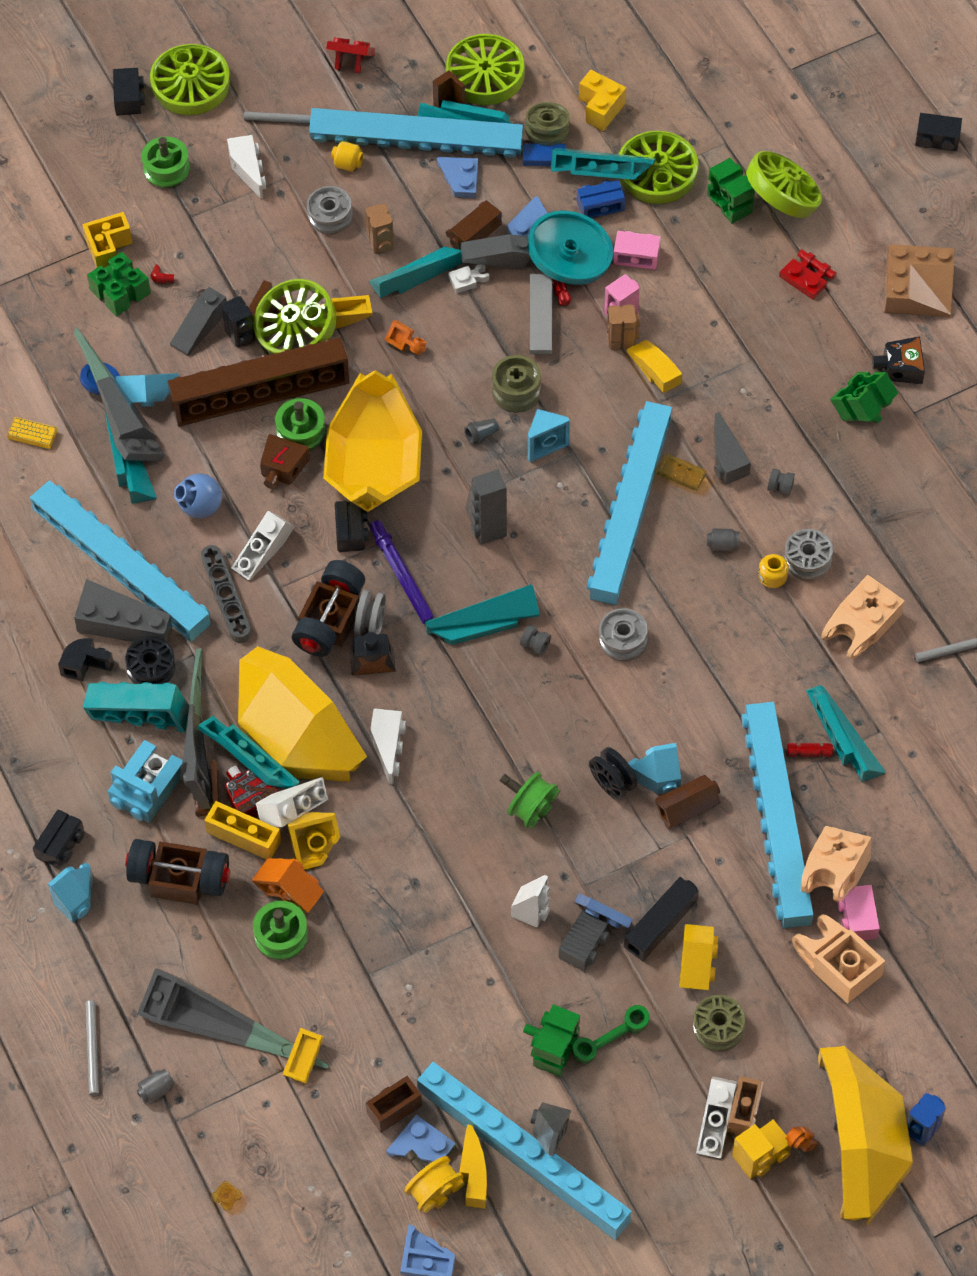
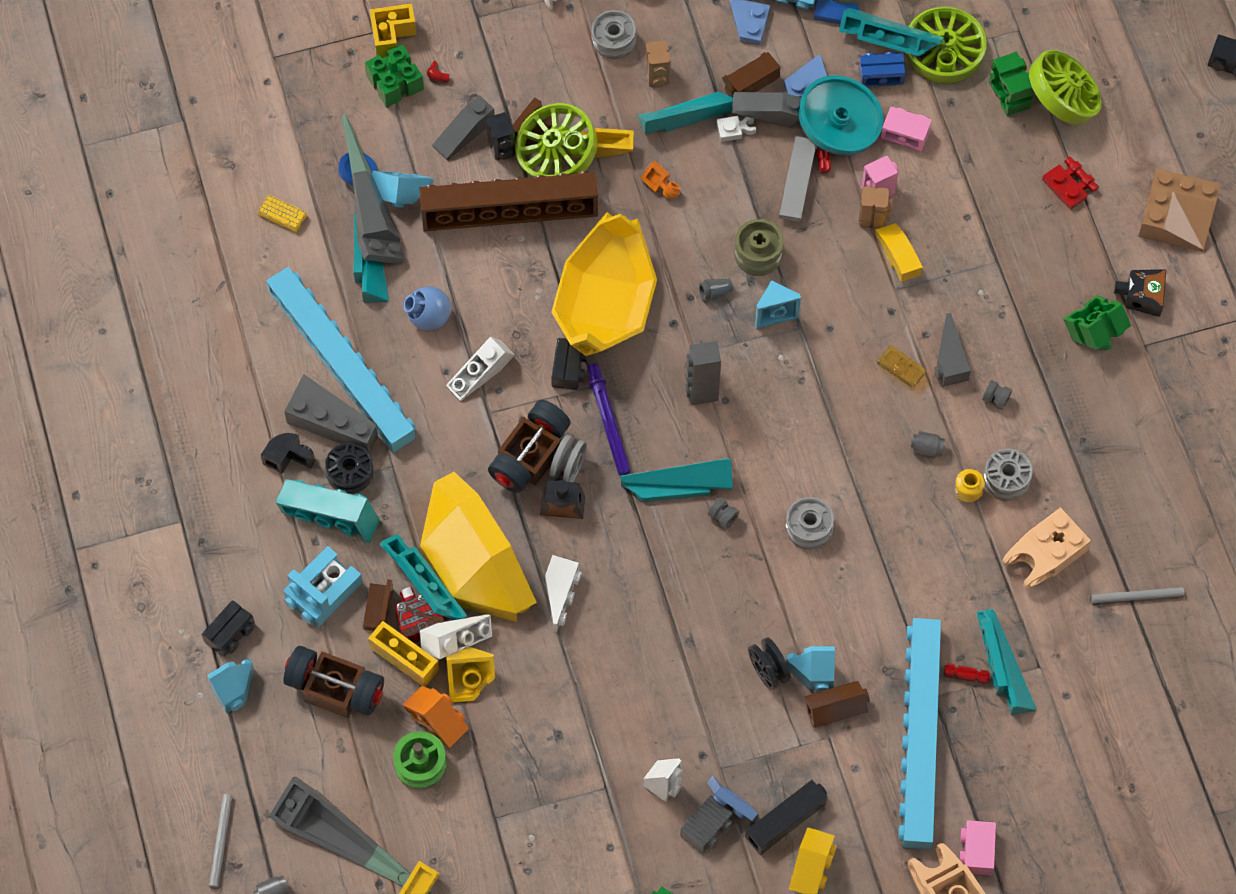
camera: 10 degrees right, 5 degrees up
(194, 763) = (370, 582): dark grey plate -> none
(225, 604) = (435, 420): dark grey beam -> none
(282, 461) = (516, 286): reddish brown torso -> none
(301, 422) = (540, 252): bright green wheel -> none
(531, 799) = (685, 674): bright green wheel -> none
(630, 503) = (845, 389): medium azure brick -> none
(836, 862) = (966, 794): light nougat brick -> none

